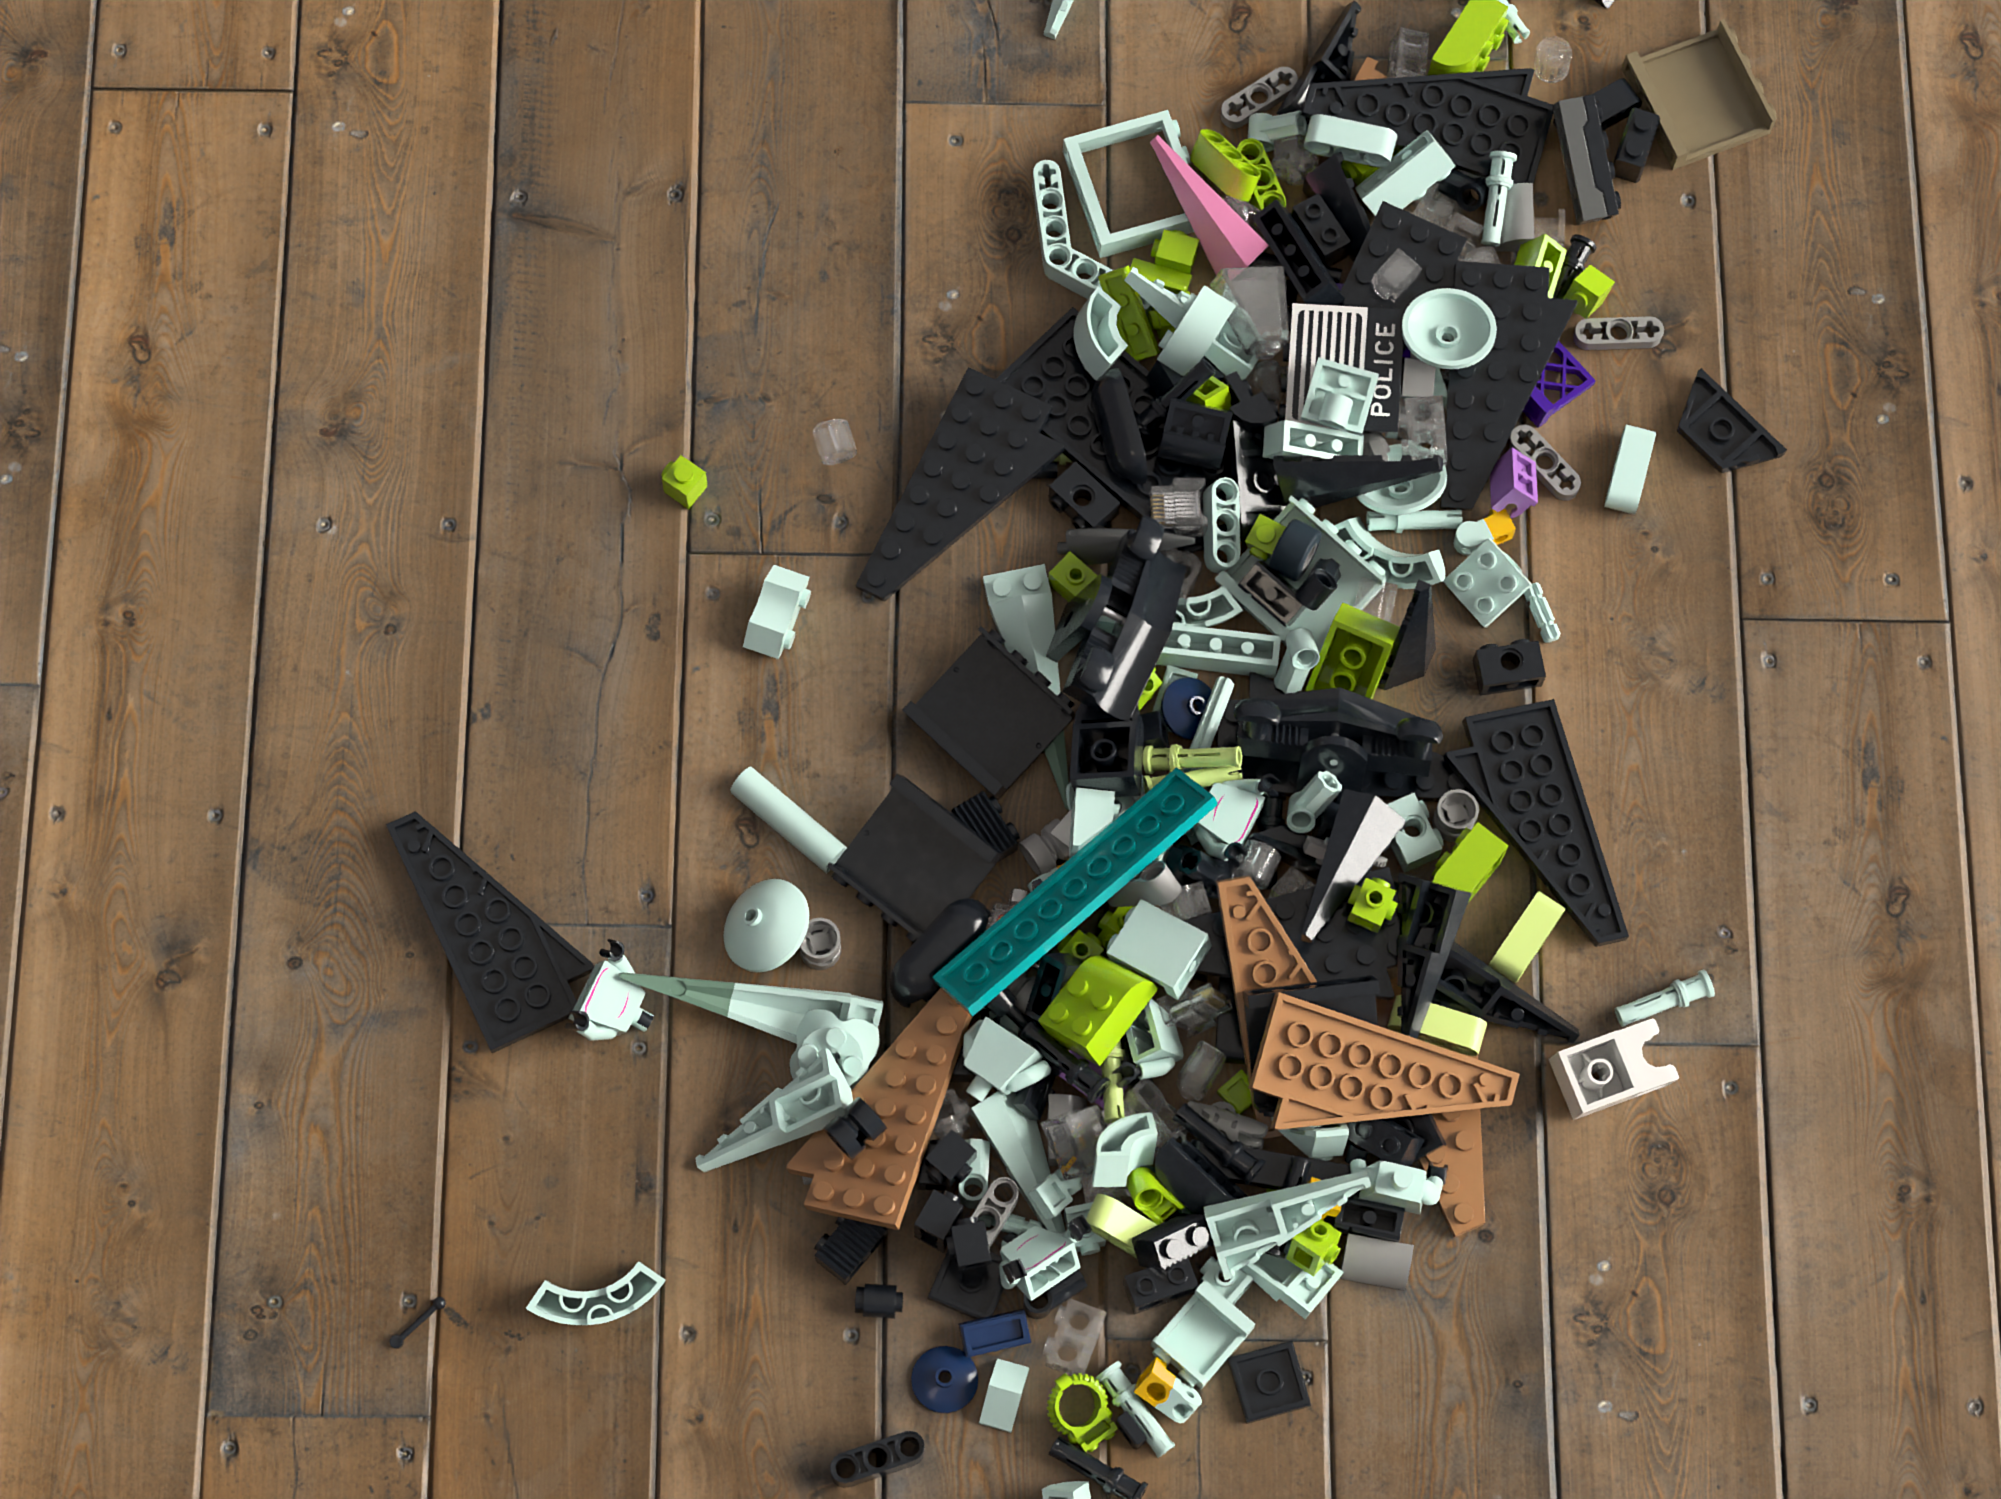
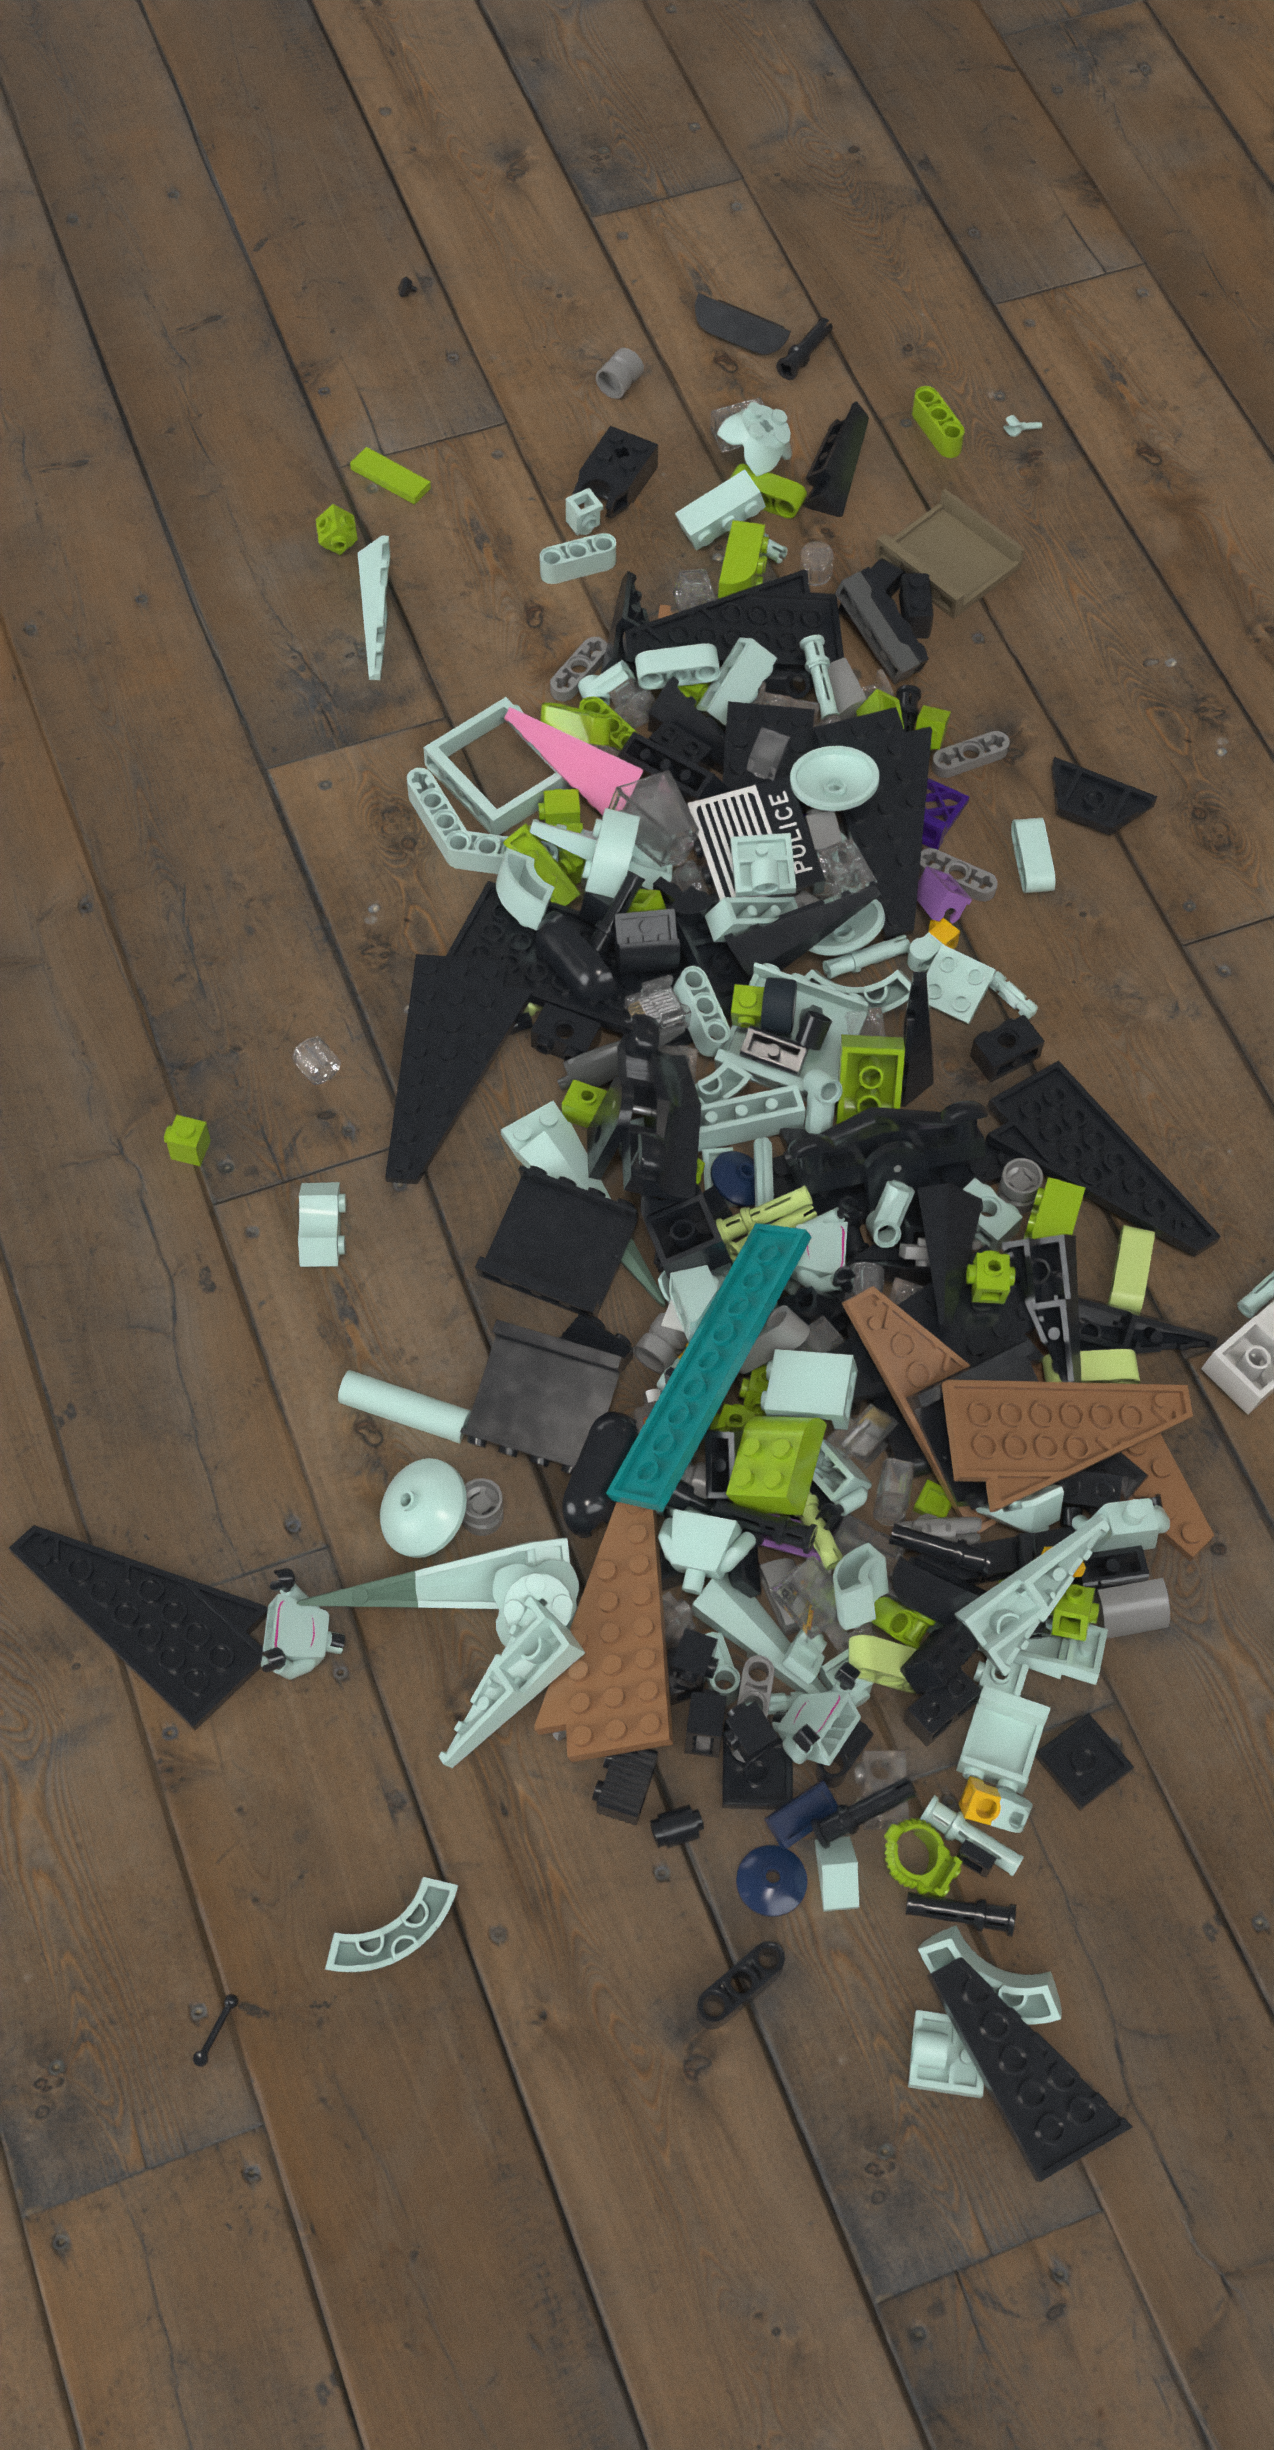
camera: 20 degrees left, 10 degrees down
(854, 1128) = (593, 1656): black wheel -> none
(1030, 1353) = (849, 1818): none -> black pin

